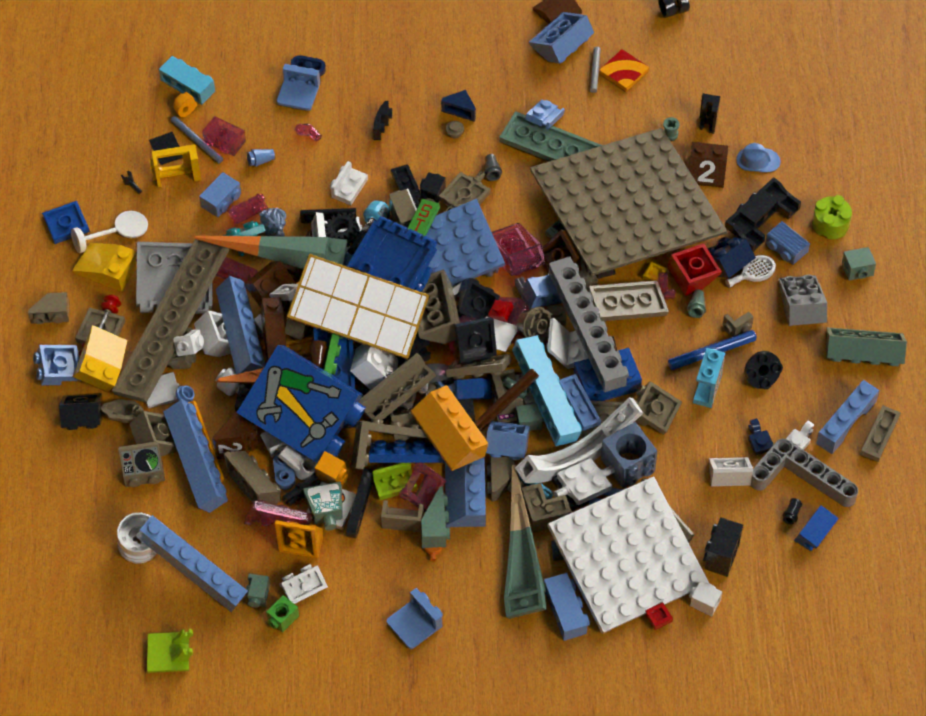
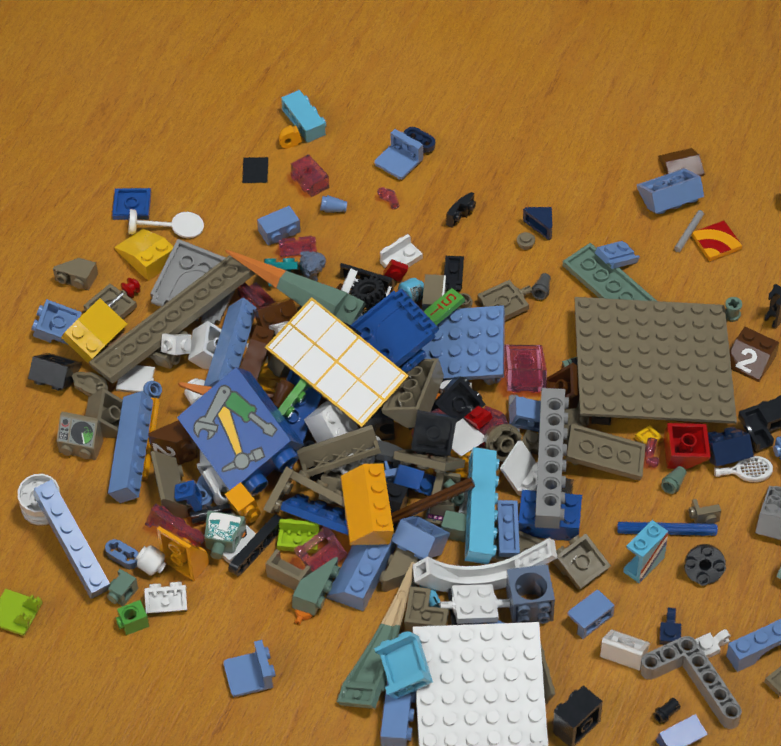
camera: 25 degrees right, 5 degrees down
(130, 181) = (206, 186): black hand -> none
(189, 165) = (265, 191): yellow window -> none
(194, 137) = (286, 173): sand blue bar -> none
(239, 559) = (121, 556): none -> medium blue beam
(271, 554) = (150, 560): none -> white head
(277, 478) = (190, 492): none -> blue bracket
(353, 199) = (396, 270): none -> red plate
(432, 186) = (476, 284): black brick -> none
(557, 560) = (404, 664): none -> medium azure panel
(687, 450) = (591, 613): none -> medium blue panel

